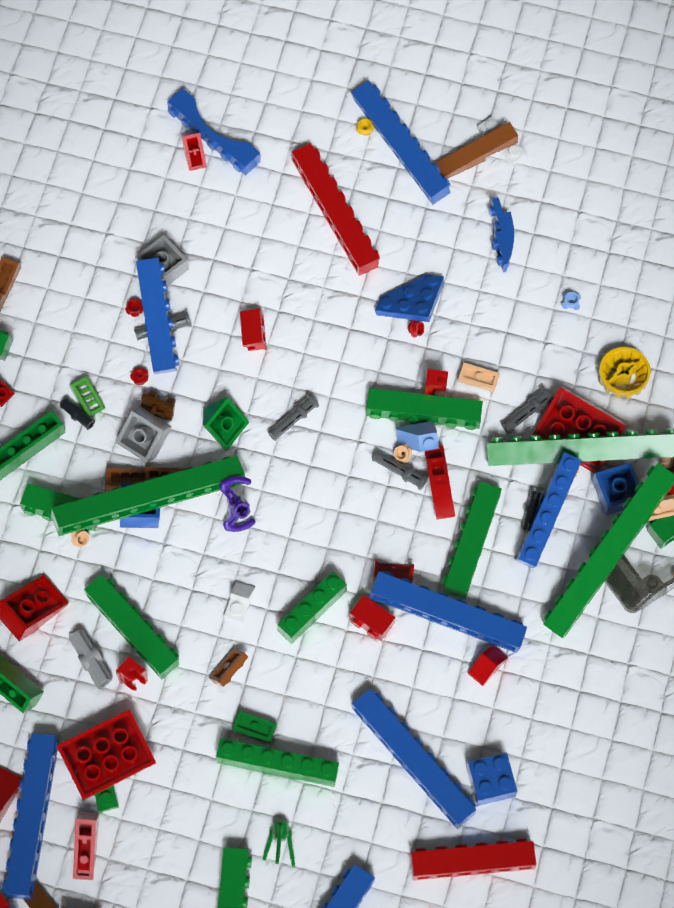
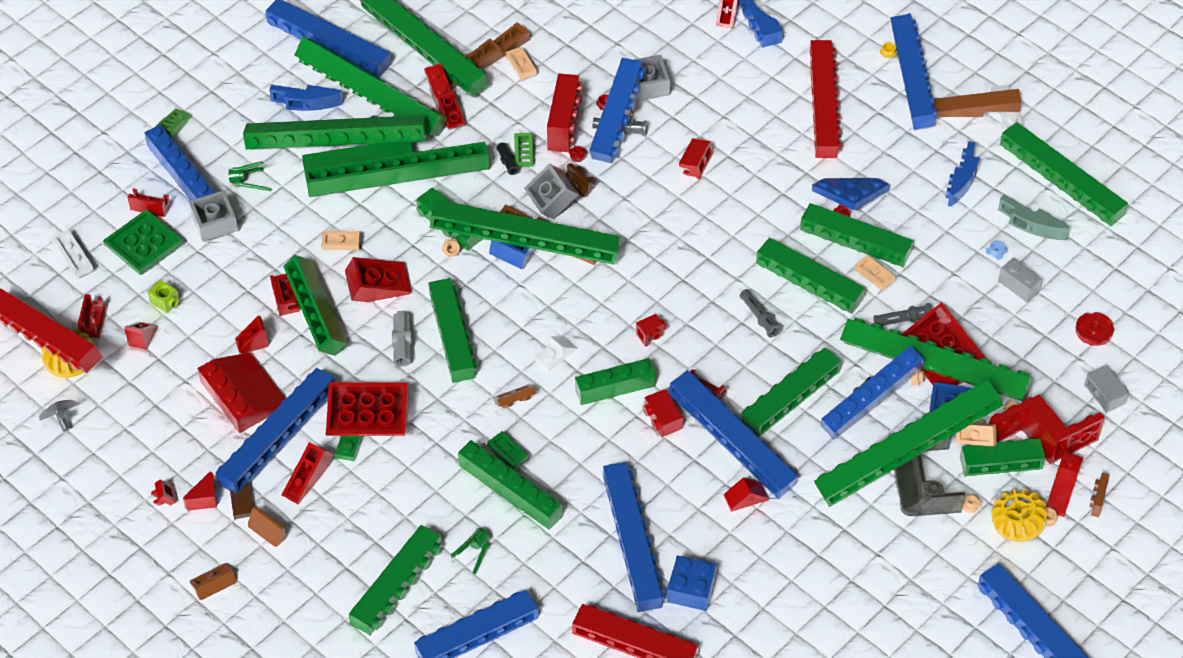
camera: 30 degrees right, 15 degrees down
(29, 300) = (521, 63): none -> light nougat plate
(106, 340) = (564, 113): none -> red brick
(131, 671) = (426, 360): red hinge -> none
(224, 422) = (627, 213): green slope -> none
(237, 505) = (596, 274): dark purple piece -> none
(300, 412) = (697, 234): dark grey pin -> none
(312, 536) = (650, 329): none -> red brick
(398, 453) = (769, 301): light nougat plate -> none
(418, 436) = (790, 292): medium blue slope -> none
(436, 381) = (831, 255): red hinge -> none
(440, 483) = (787, 335): red slope -> none
(442, 345) = (856, 235): none -> green brick
(588, 192) = (1064, 174): none -> green brick
(592, 257) = (1036, 223): none -> sand green slope
(609, 324) = (1020, 280): none -> light grey brick
(624, 361) = (1010, 316): yellow gear -> none

